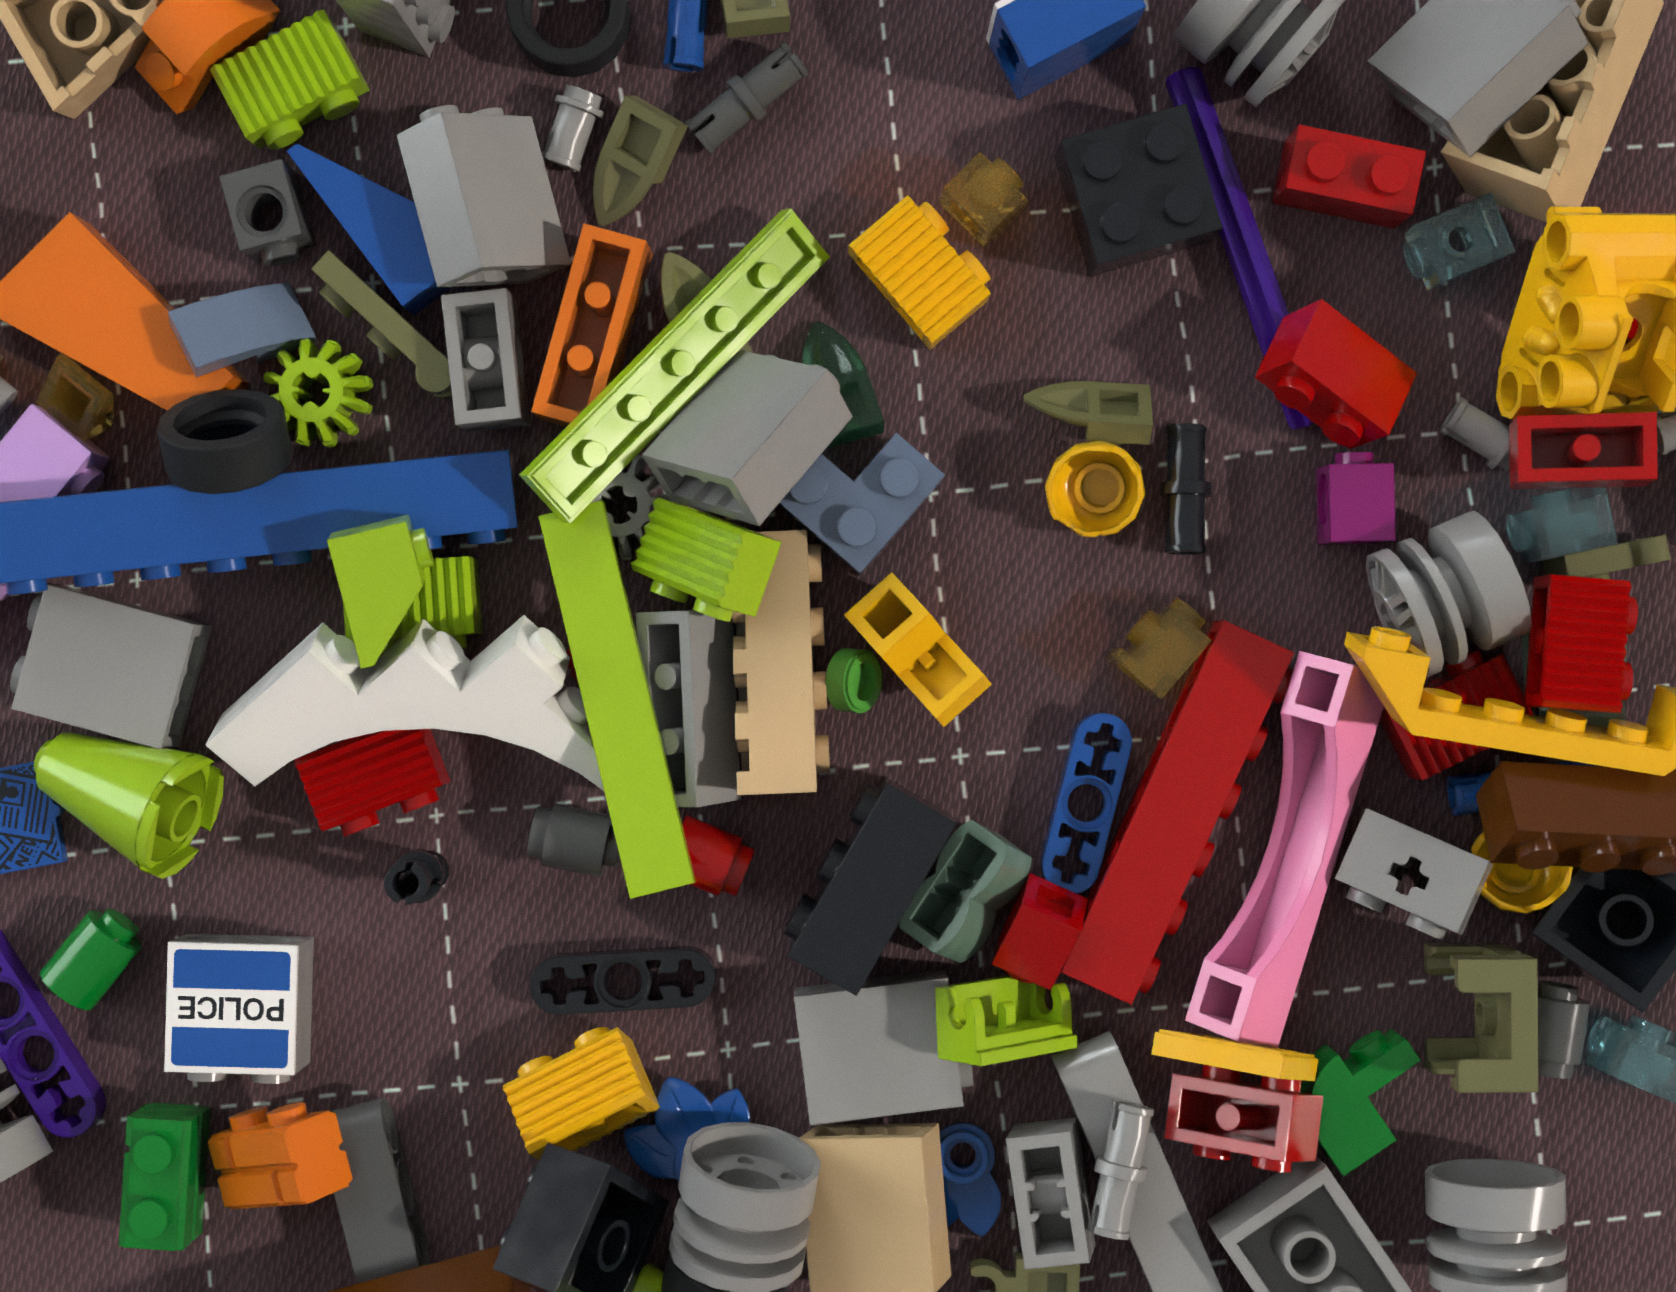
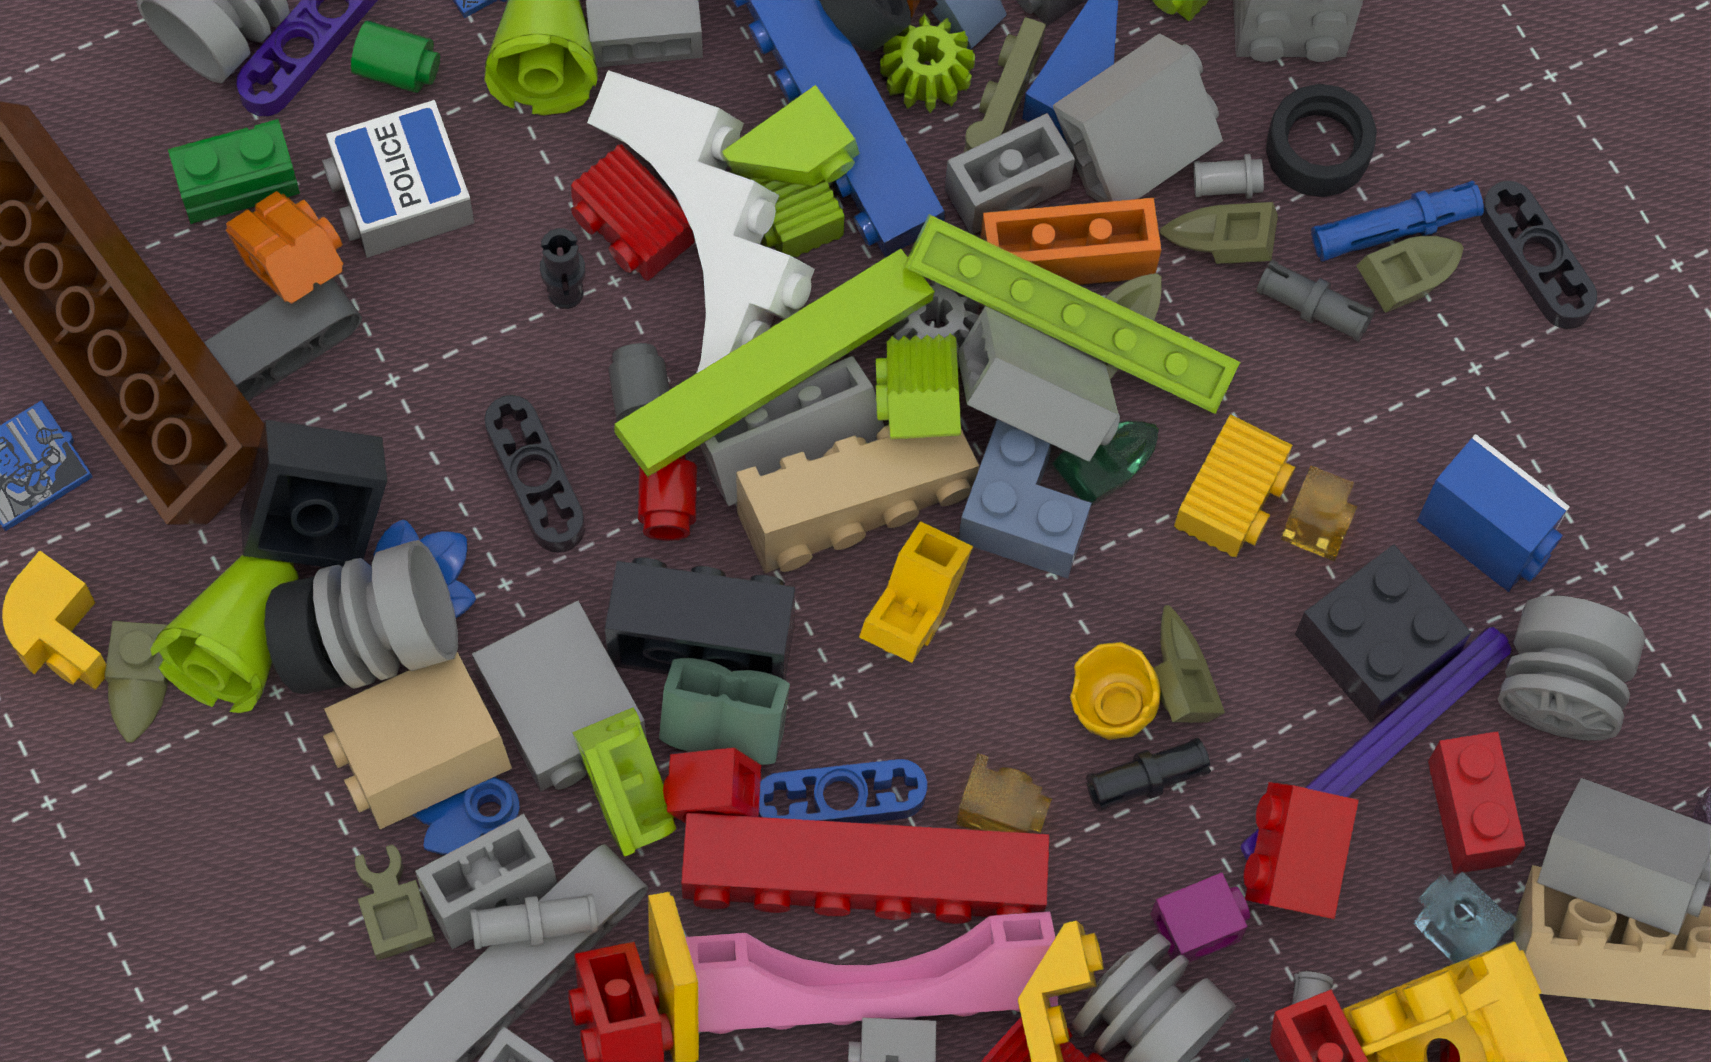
camera: 70 degrees right, 20 degrees down
(580, 1092) = (430, 467): yellow brick -> none
(853, 680) = (866, 559): bright green tile -> none

